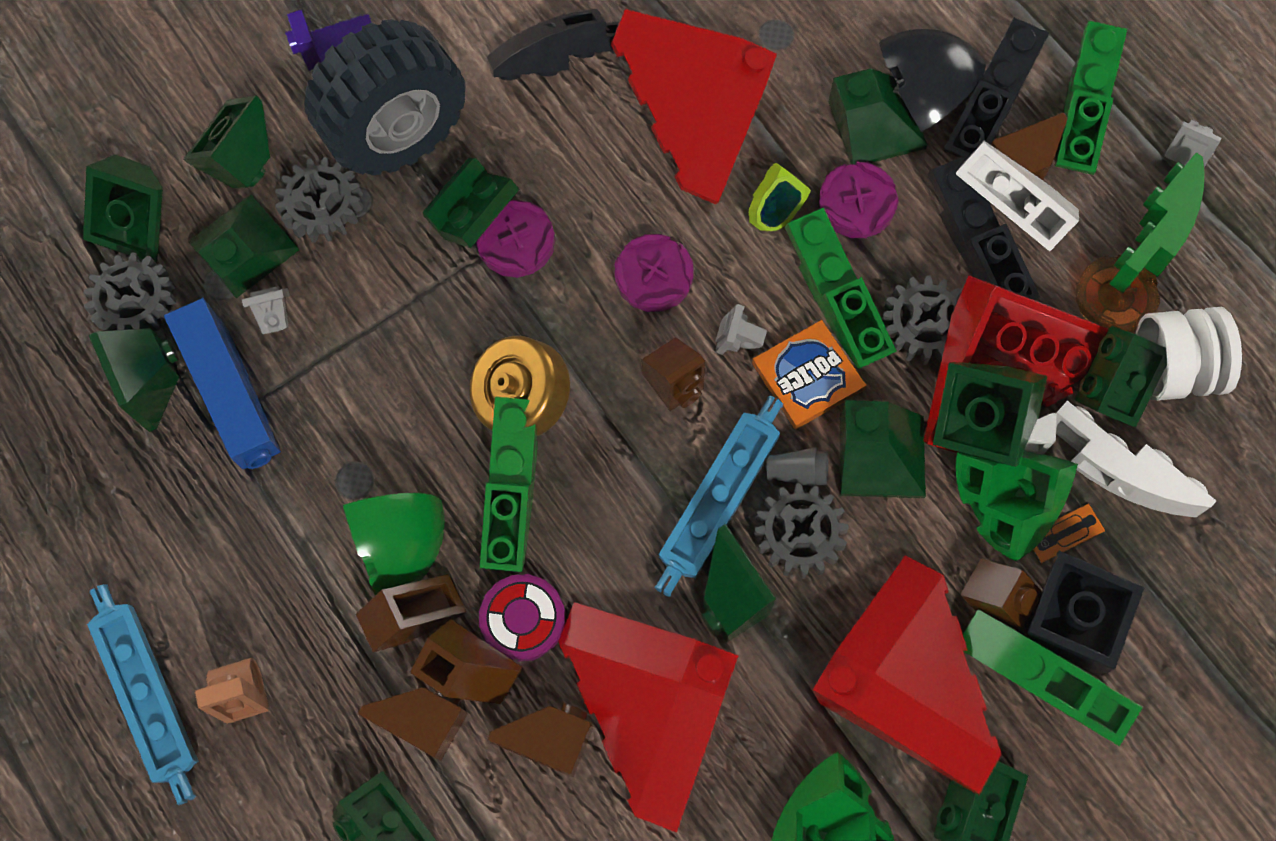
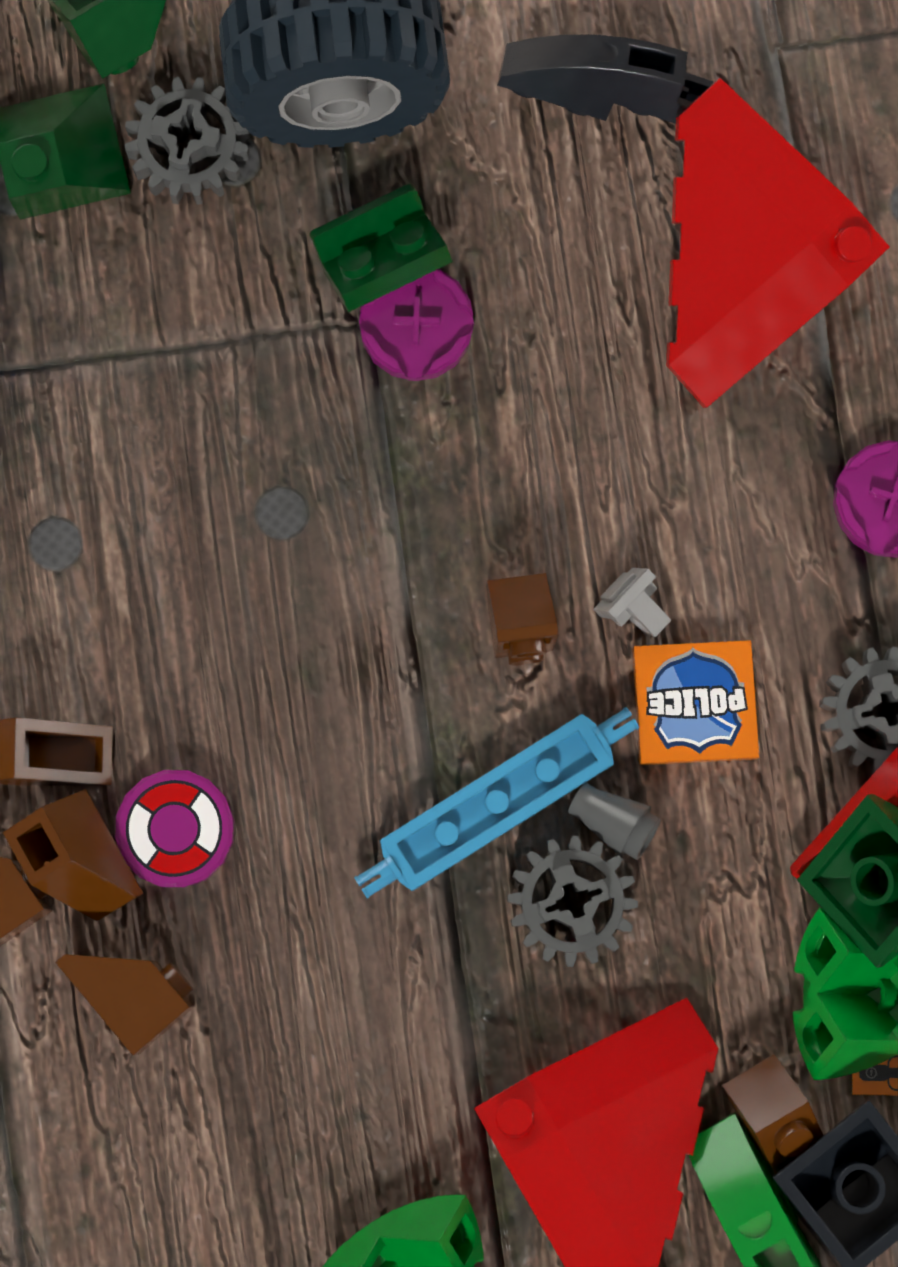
camera: 20 degrees right, 10 degrees up
(269, 308) = (53, 260): light grey brick -> none
(396, 536) = (68, 655): green brick -> none
(509, 487) = (242, 654): green slope -> none
(521, 370) = (316, 535): pearl gold wheel -> none
(653, 702) = (277, 1017): red slope -> none
(654, 273) = (571, 462): magenta tile -> none
(734, 590) = (442, 935): dark green slope -> none
(777, 199) = (783, 447): rock -> none
(838, 291) = (794, 613): green slope -> none
(881, 450) = (731, 853): dark green slope -> none

